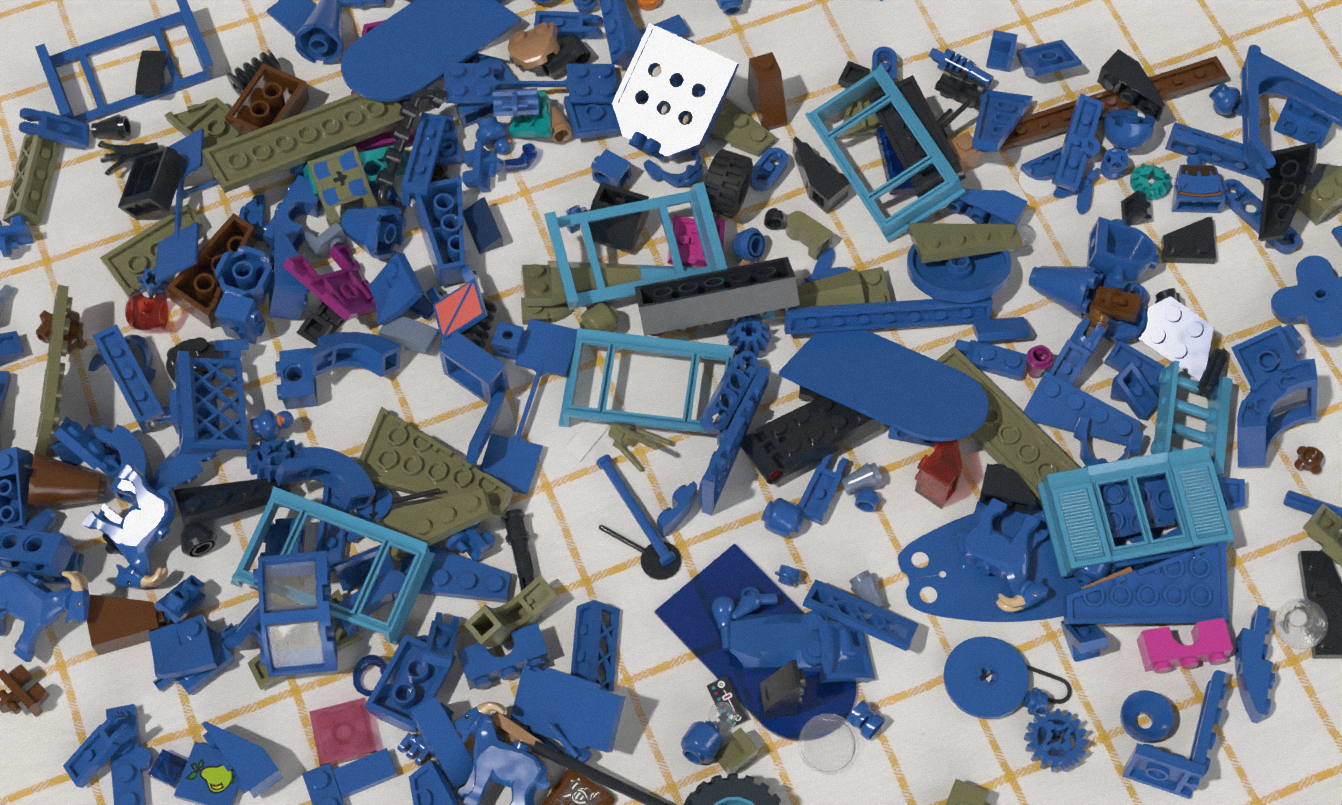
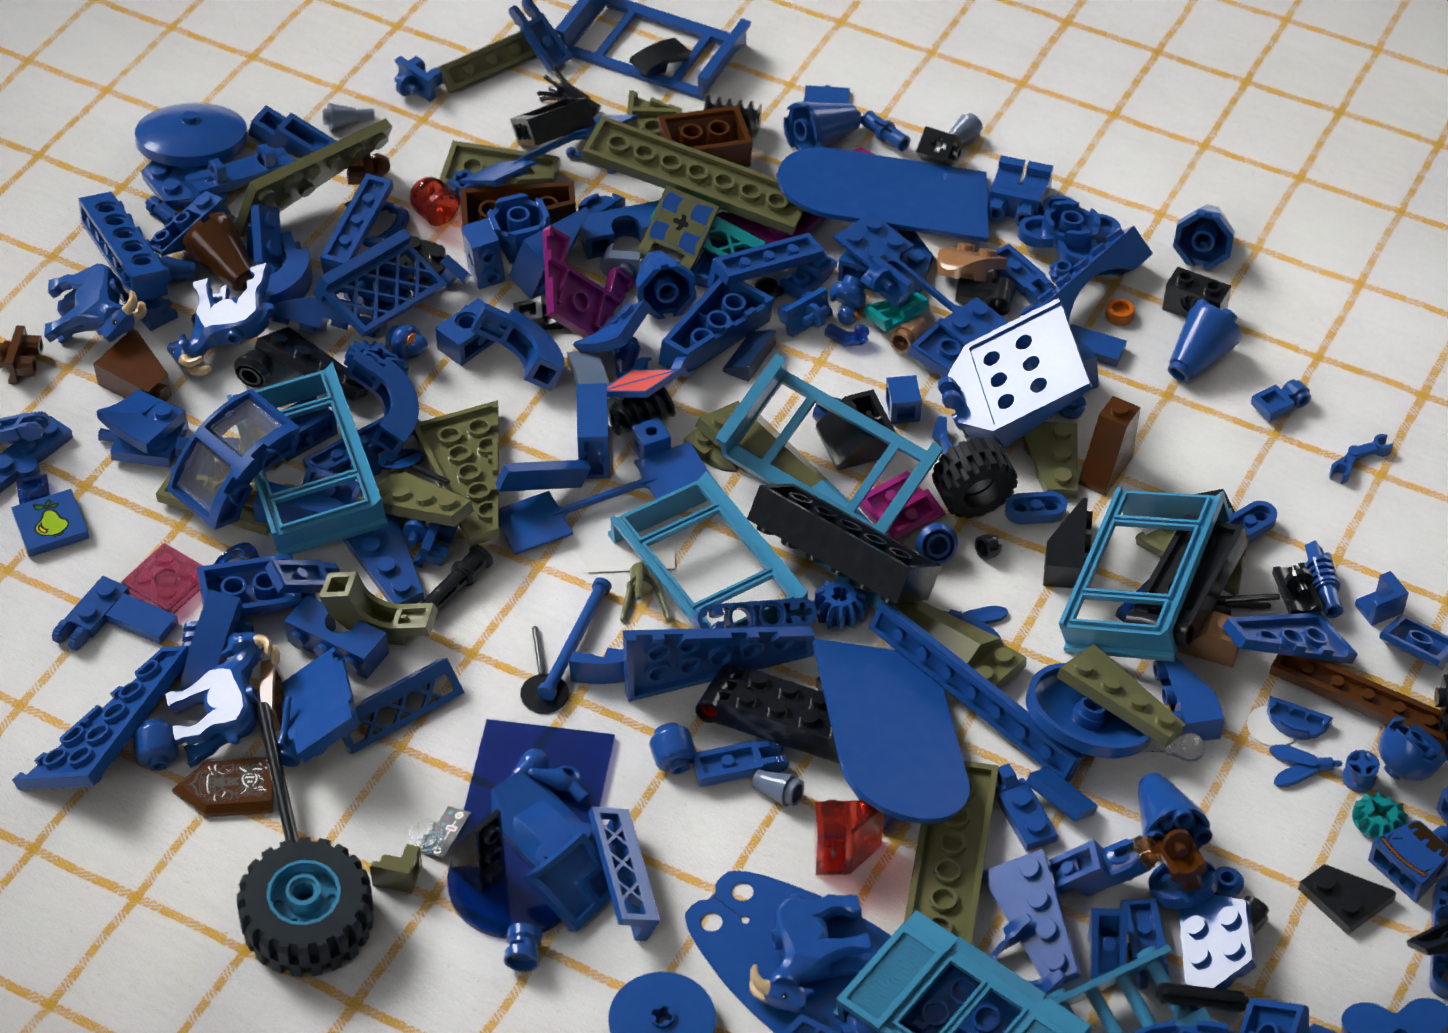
camera: 50 degrees right, 15 degrees down
(113, 127) = (585, 71): black cone -> none
(182, 599) = (187, 393): blue hips -> none
(247, 759) = (75, 530): blue slope -> none
(401, 135) = (767, 232): black bar -> none
(600, 318) = (739, 486): olive head -> none
(701, 742) = (382, 832): blue head -> none
(788, 575) = (618, 793): blue plate -> none
(808, 232) = (1000, 577): olive leg -> none
(828, 744) = (470, 932): clear piece -> none
(867, 500) = (760, 804): blue plate -> none
(867, 589) = (663, 863): sand blue cone -> none
(1008, 488) = (881, 902): black slope -> none
(1038, 360) = (1053, 837): magenta cone -> none
(1078, 143) = (1342, 720): blue hinge -> none
(1120, 252) = (1251, 831): blue piece -> none
(1135, 208) = (1327, 818): black tile -> none

